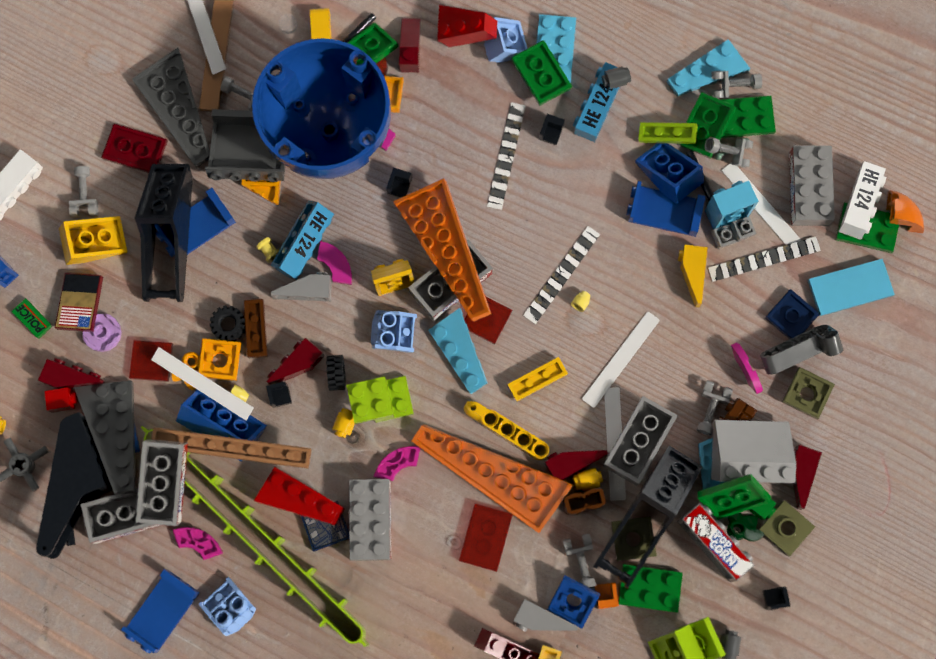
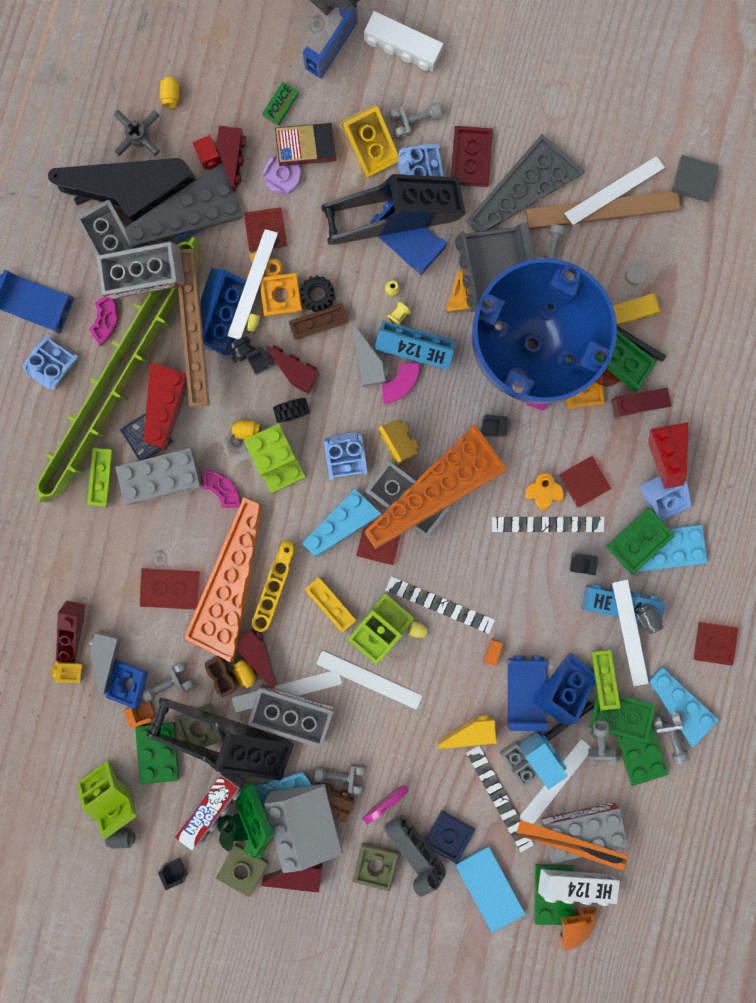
camera: 70 degrees right, 10 degrees up
(126, 196) = (420, 160): none -> light blue slope
(244, 253) = (392, 292): none -> light yellow hose
(263, 409) = (240, 348): none -> black wheel
(356, 582) = (100, 477): none -> lime plate
(473, 112) = (584, 481): none -> clear red tile
(476, 151) = (544, 494): none -> light orange plate
(571, 333) = (380, 629): none -> lime bracket
(618, 233) = (493, 652): none -> orange piece
(627, 100) = (630, 633): none -> white sticker
(655, 26) = (715, 643): none -> clear red tile
(819, 196) = (572, 845): none -> orange sticker

